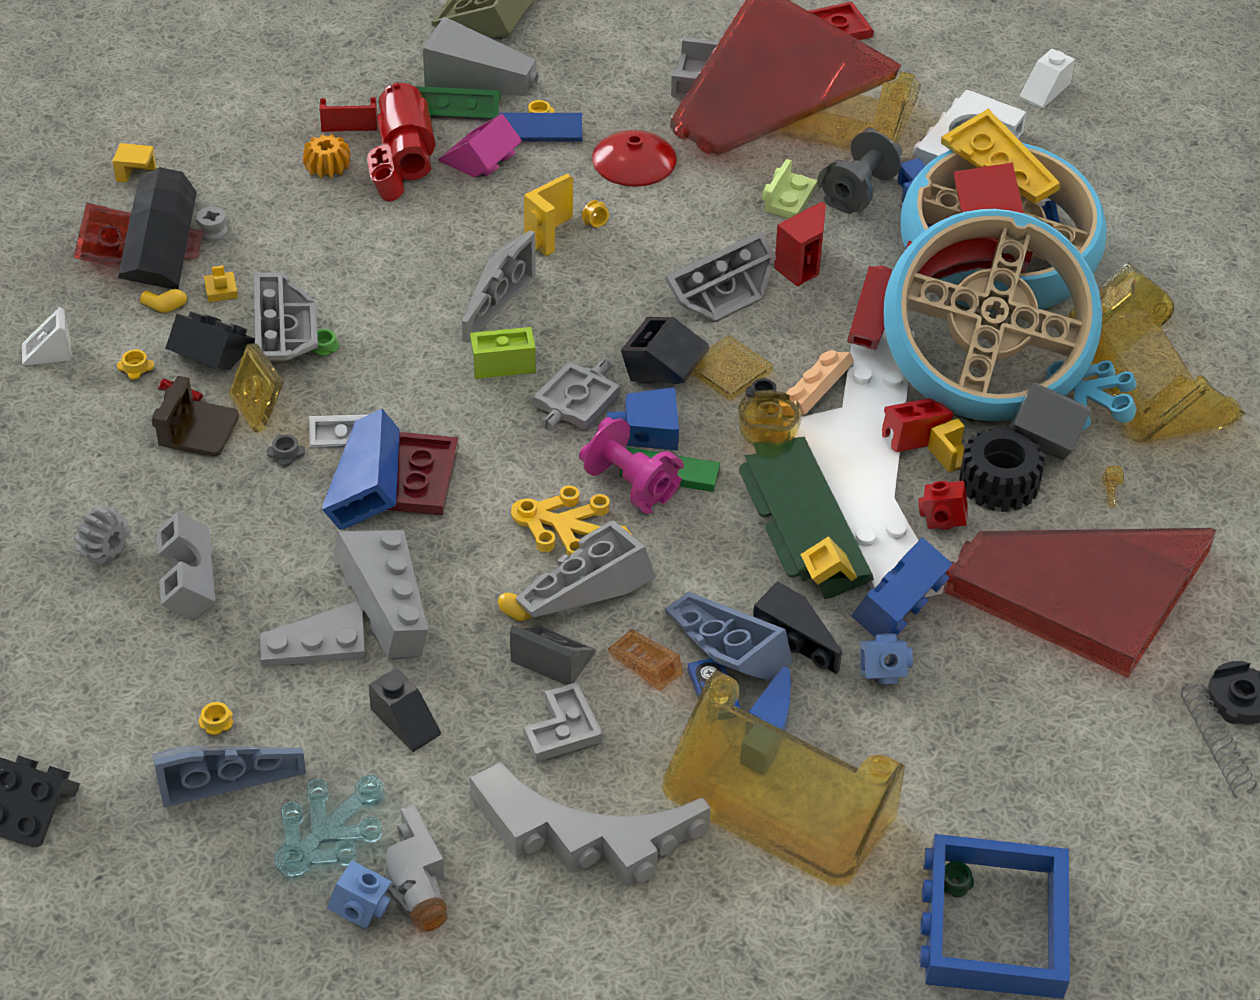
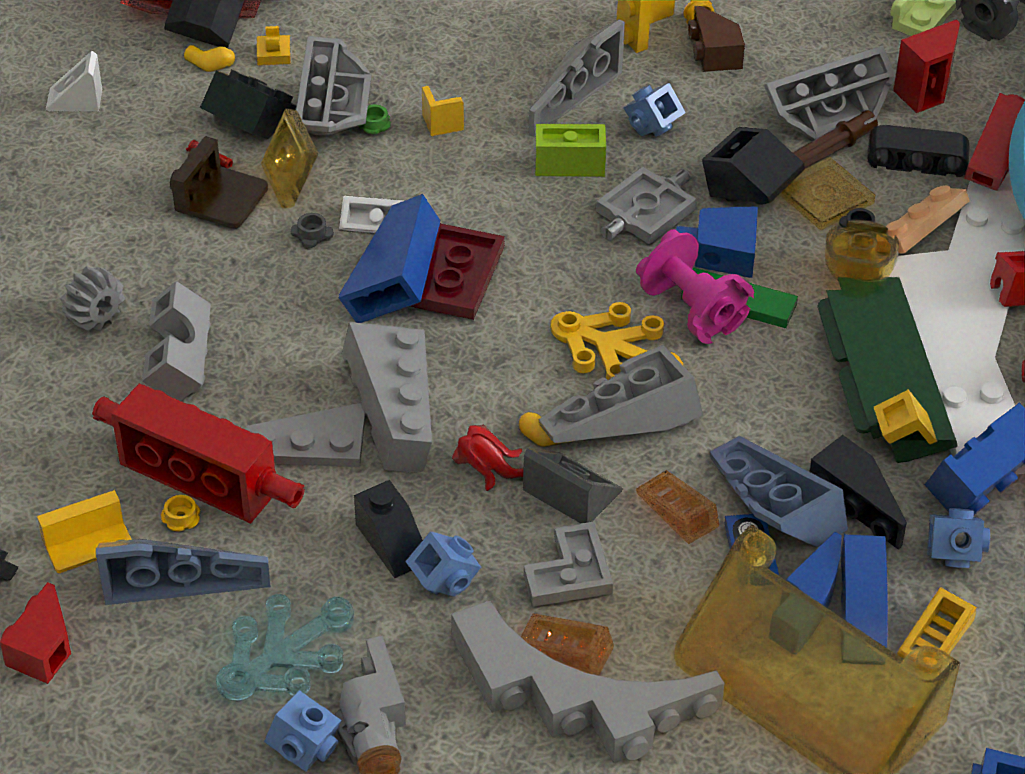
camera: 10 degrees right, 0 degrees up
(112, 845) = (38, 639): none -> red slope
(129, 746) = (77, 529): none -> yellow panel
(135, 363) = (165, 121): yellow plate -> none
(222, 663) = (196, 453): none -> red brick
(383, 333) = (442, 115): none -> yellow panel
(455, 735) = (444, 564): none -> medium blue brick
(475, 633) = (486, 453): none -> red piece
(570, 308) = (654, 110): none -> medium blue brick
(587, 780) = (593, 646): none -> clear orange slope
(615, 239) = (716, 42): none -> reddish brown slope
(737, 313) = (844, 134): none -> reddish brown axle
(804, 320) = (919, 150): none -> black beam
(814, 708) = (865, 585): none -> blue slope
(887, 717) = (953, 607): none -> yellow slope

